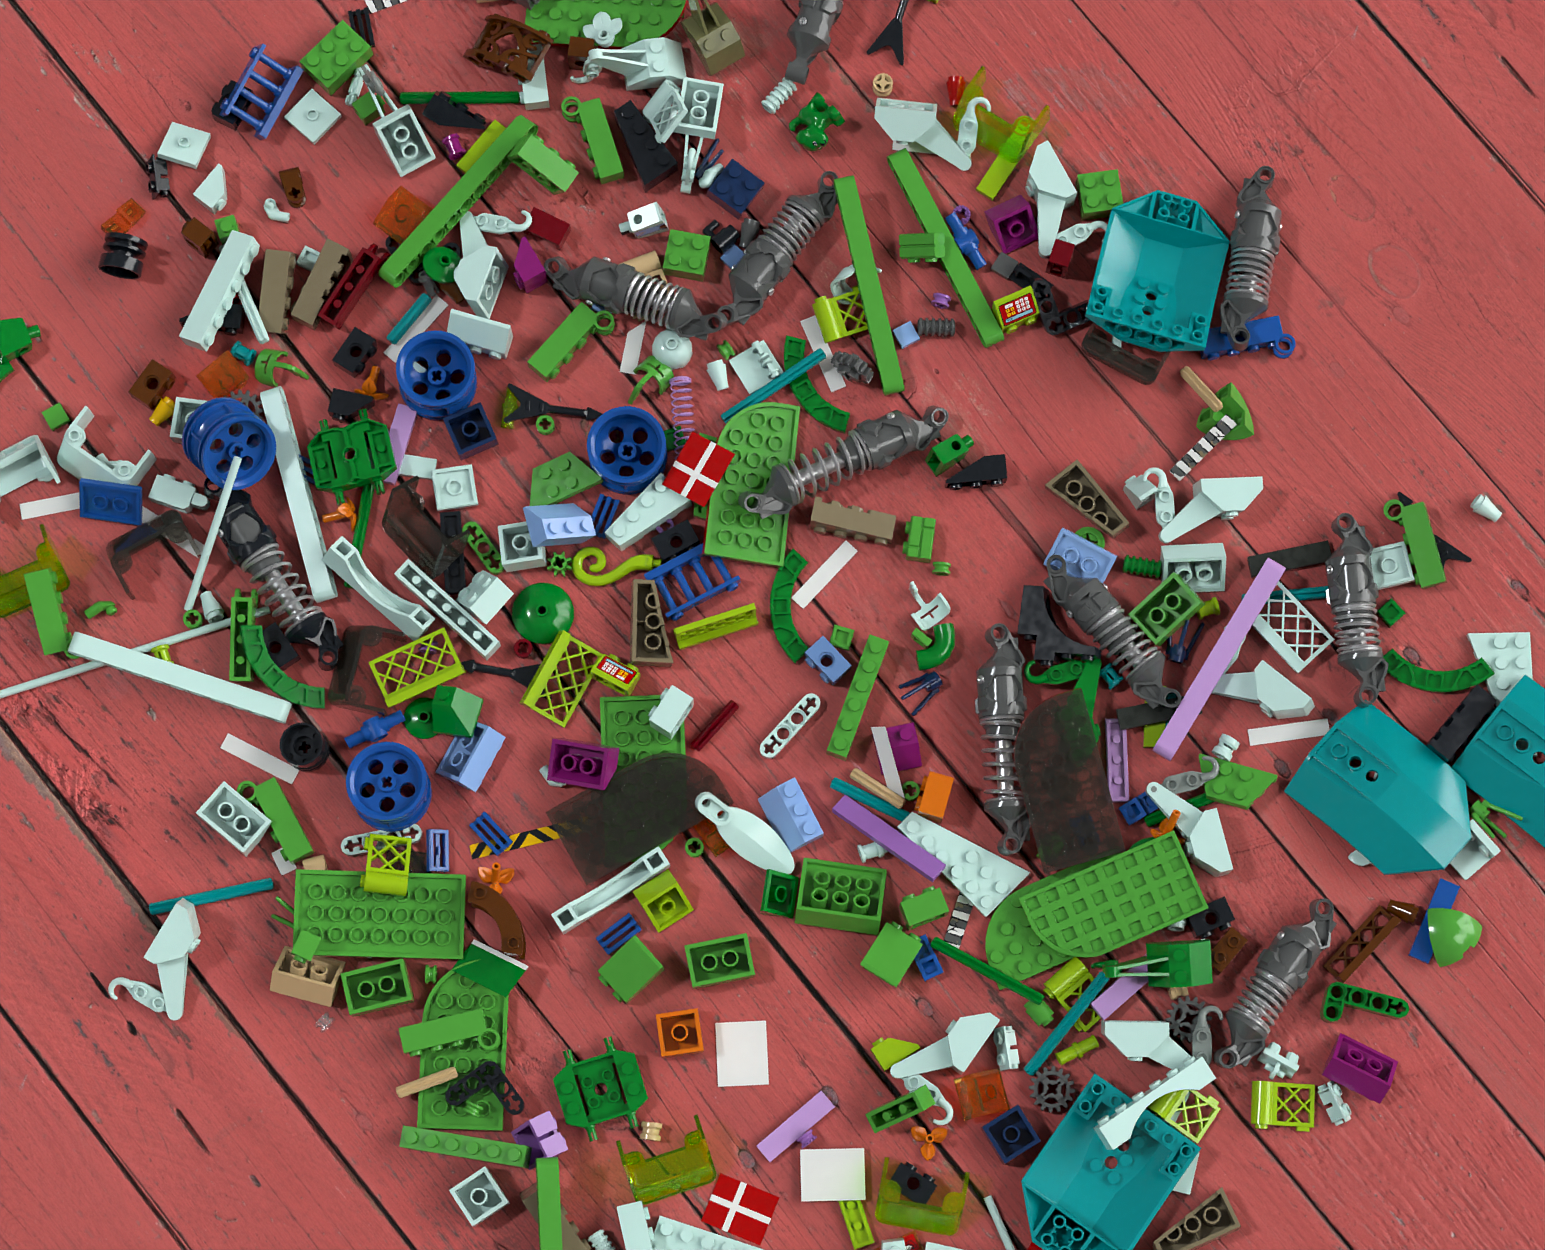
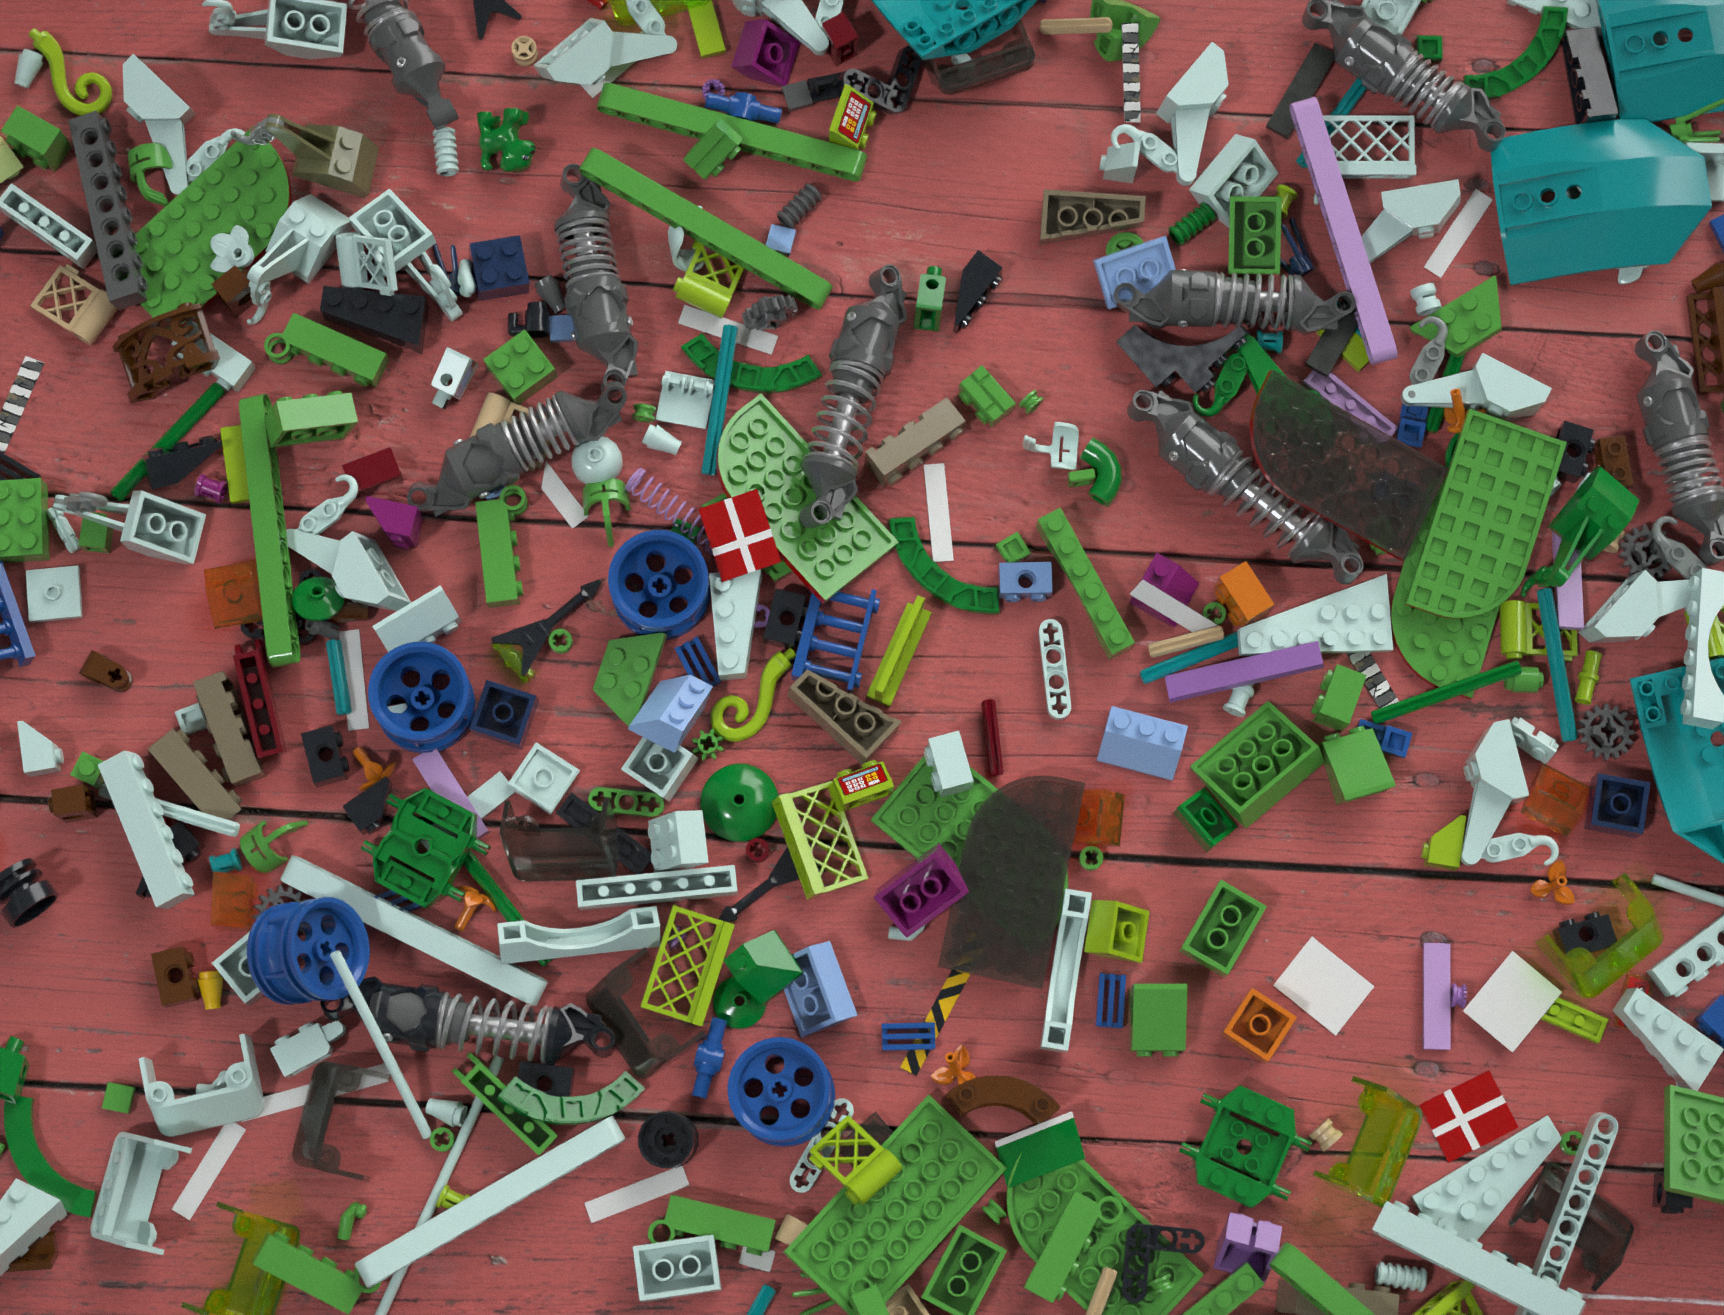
camera: 50 degrees left, 0 degrees up
(110, 501) = (254, 1117): blue tile -> none
(273, 212) = (114, 713): light aqua arm -> none
(433, 854) = (877, 1104): tile -> none
(747, 834) = (1128, 797): light aqua plant -> none
(900, 1108) = (1509, 883): bright green brick -> none
(929, 682) = (1128, 506): dark blue plant -> none
(940, 300) = (778, 180): medium lavender bush -> none

